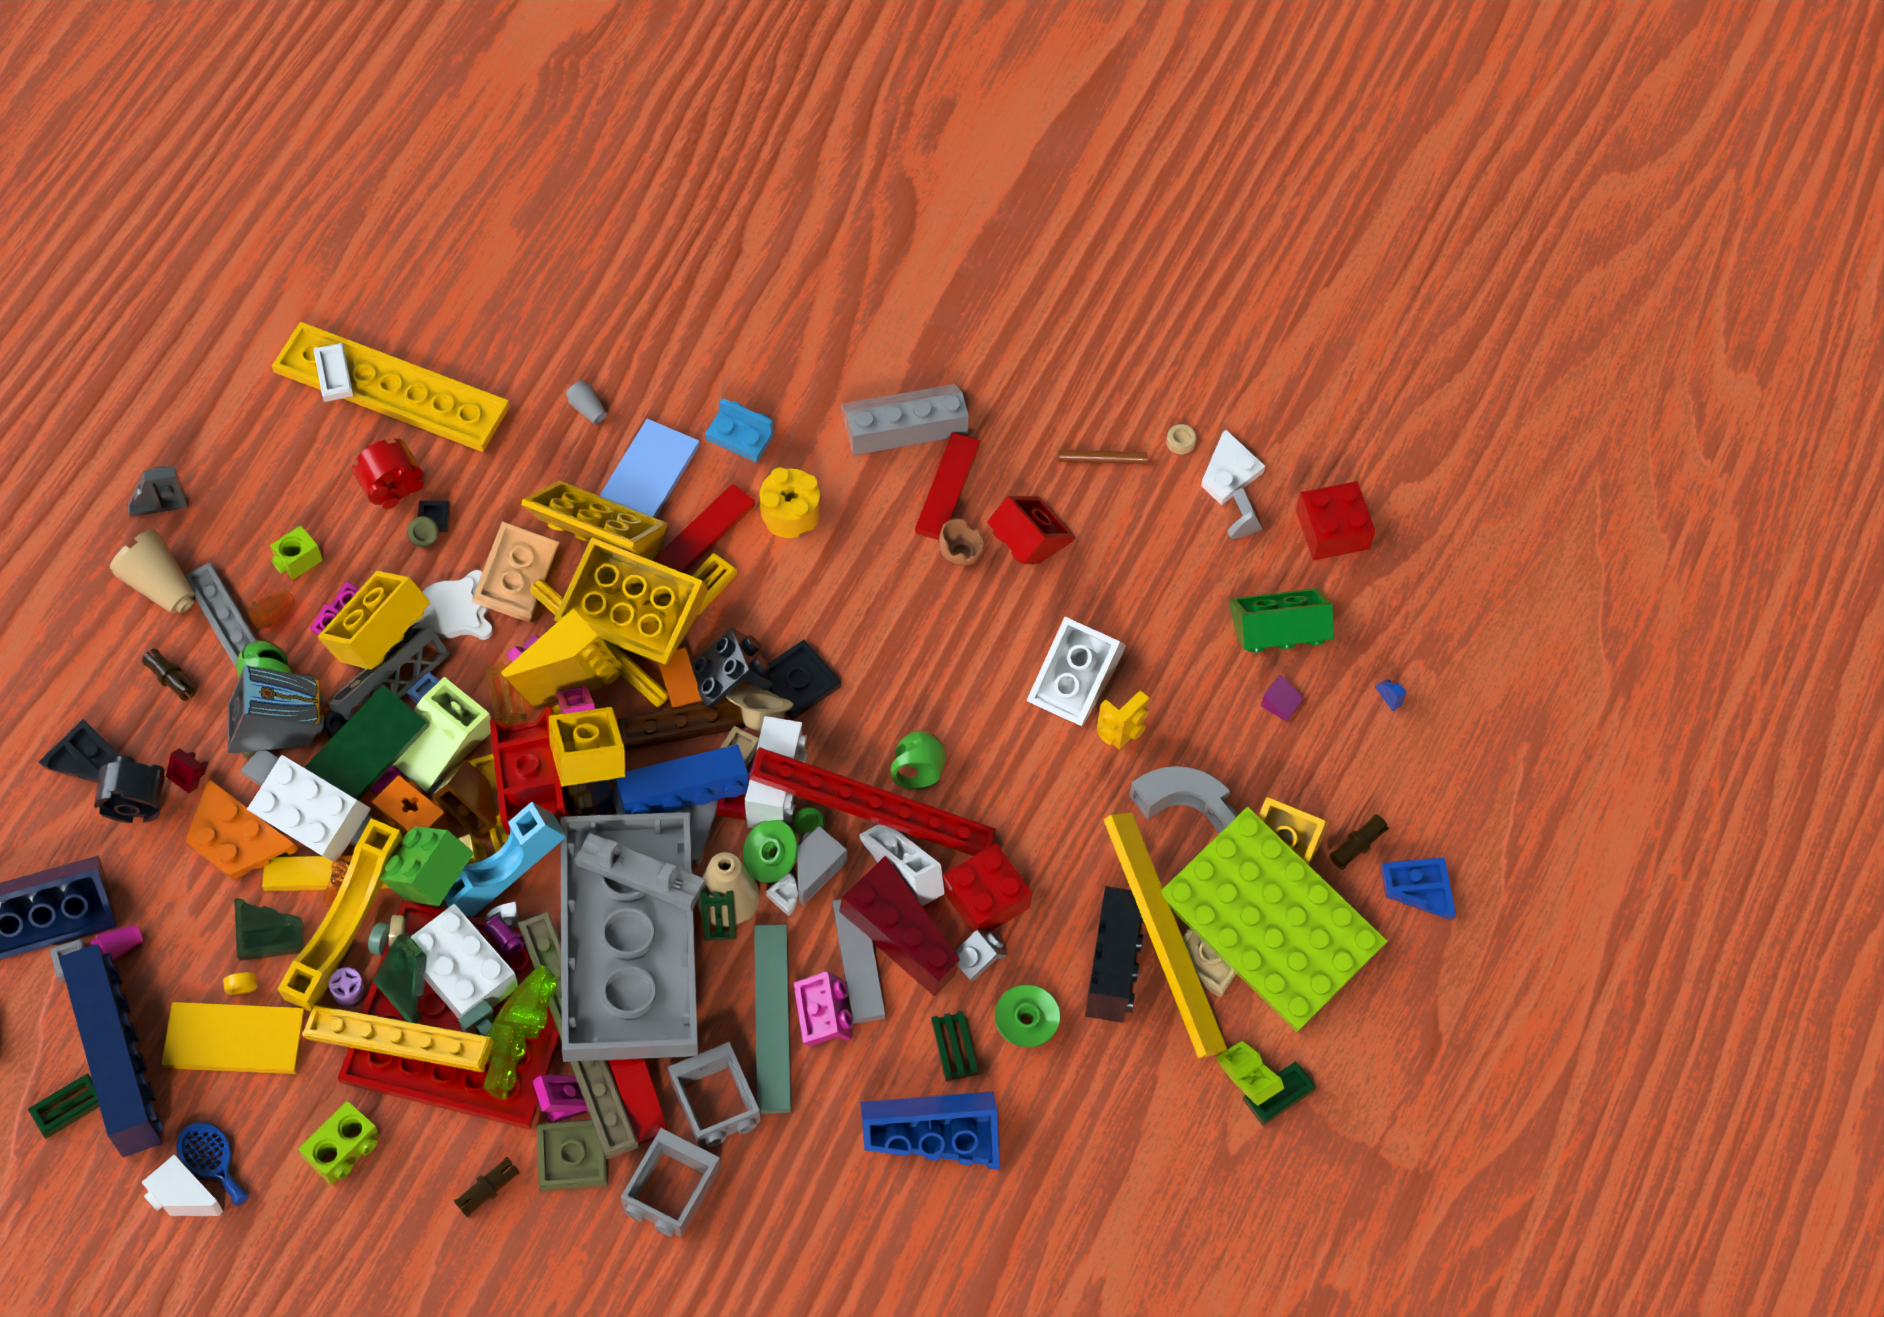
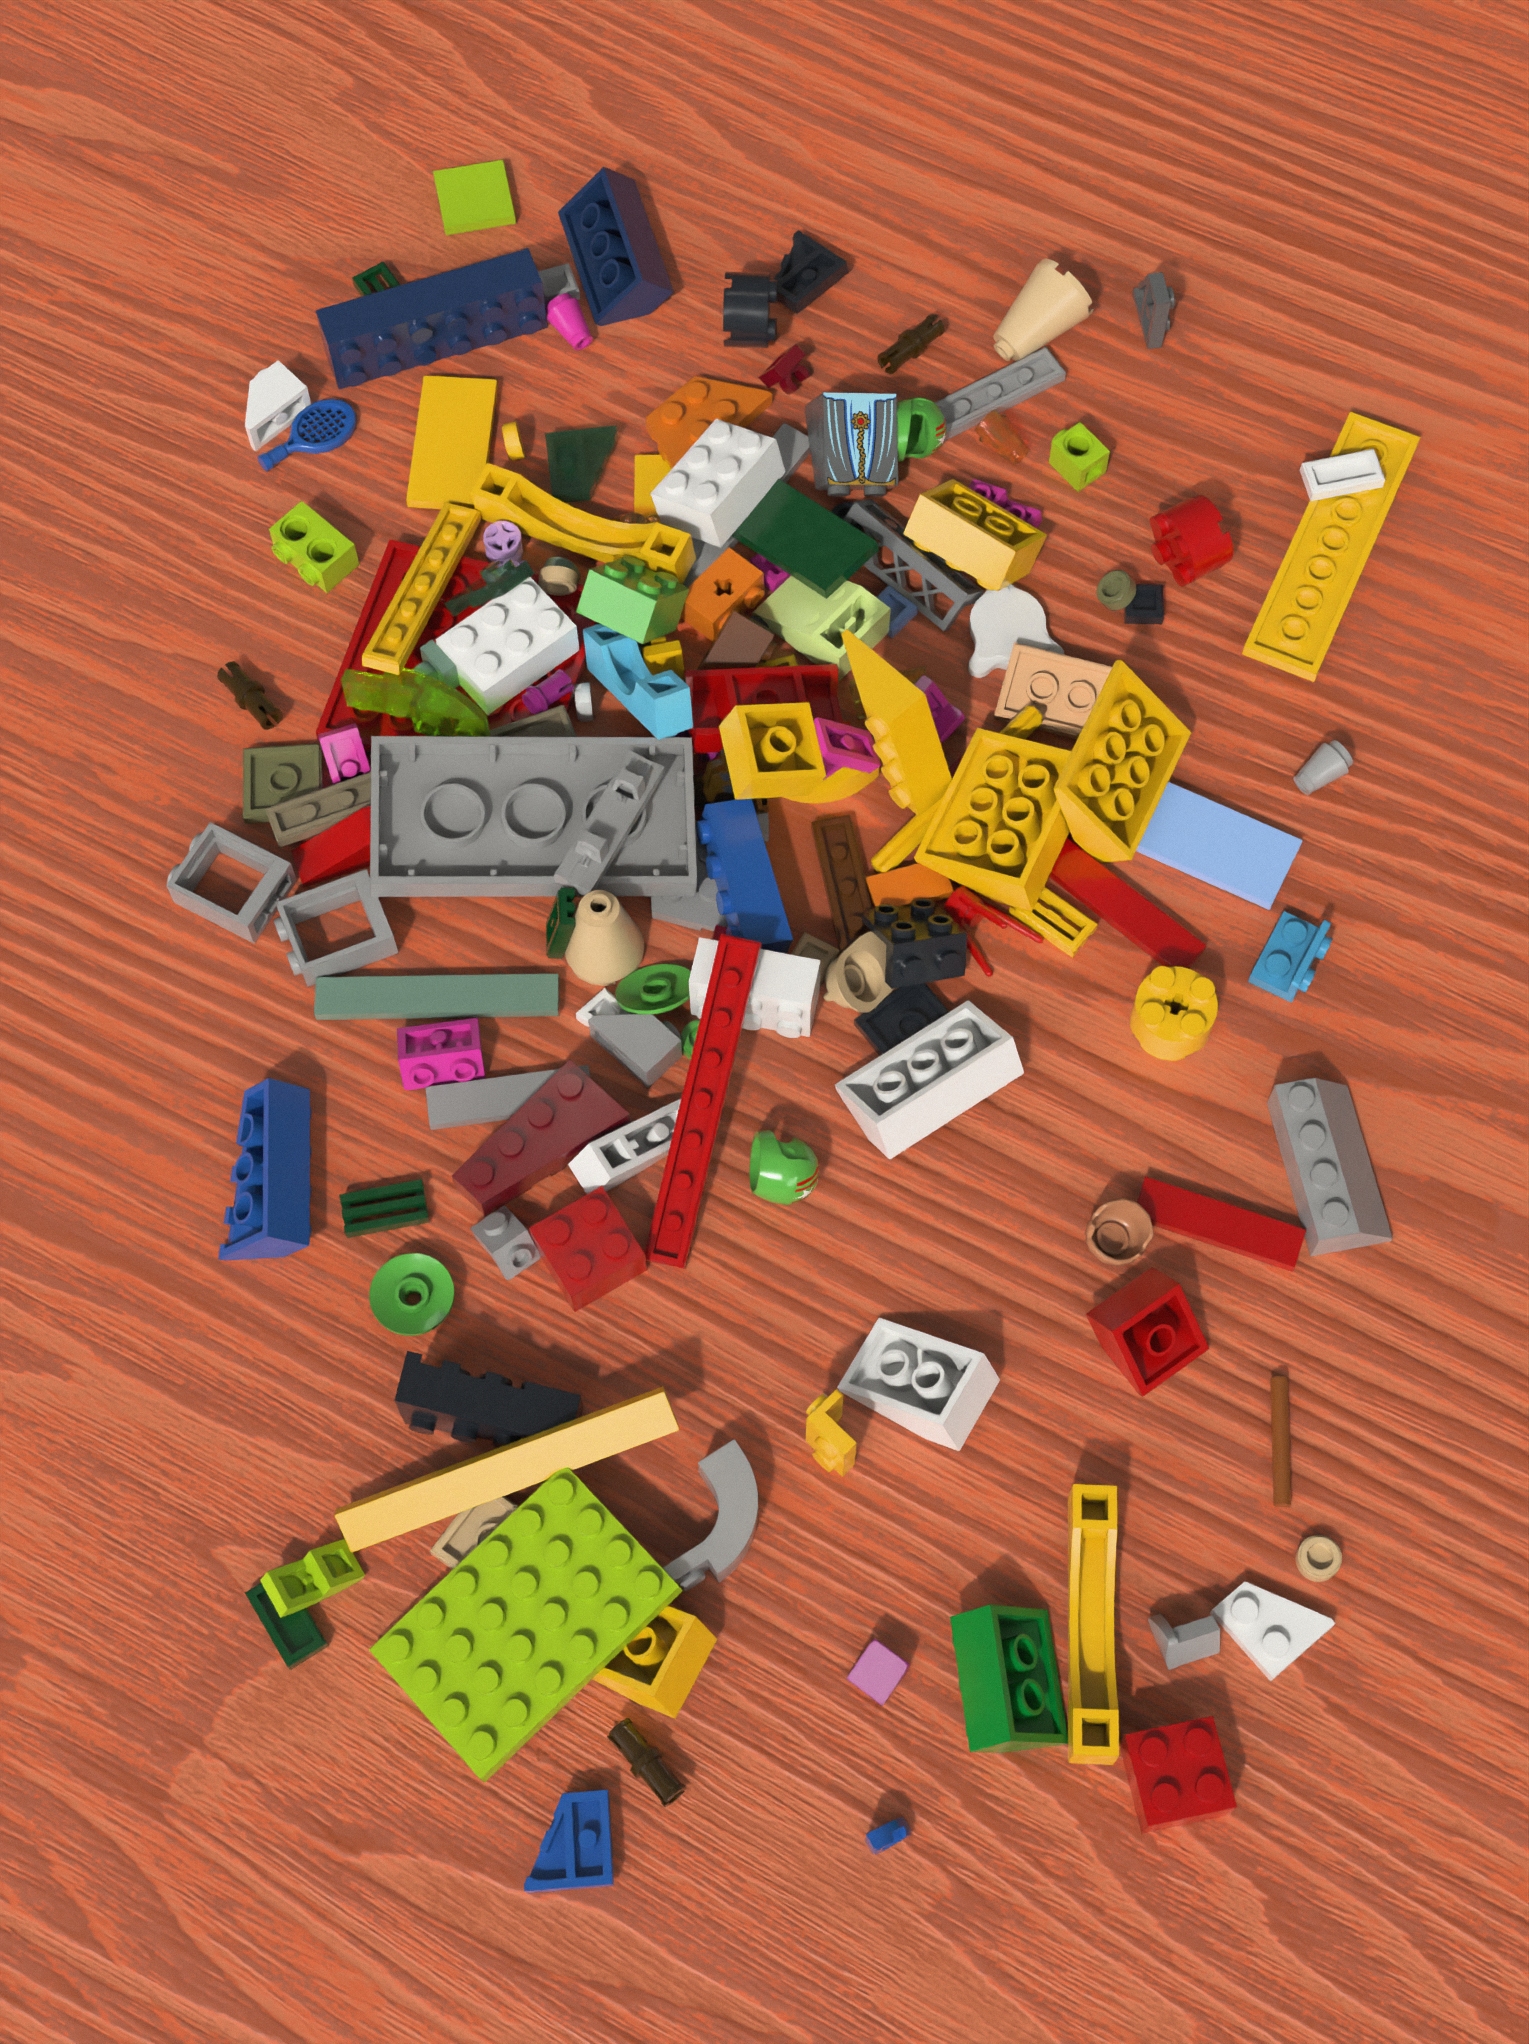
camera: 95 degrees right, 5 degrees up
(700, 635) = (970, 909): none -> red plant
(843, 661) = (930, 1078): none -> white slope
(1185, 564) = (1091, 1649): none -> yellow arch

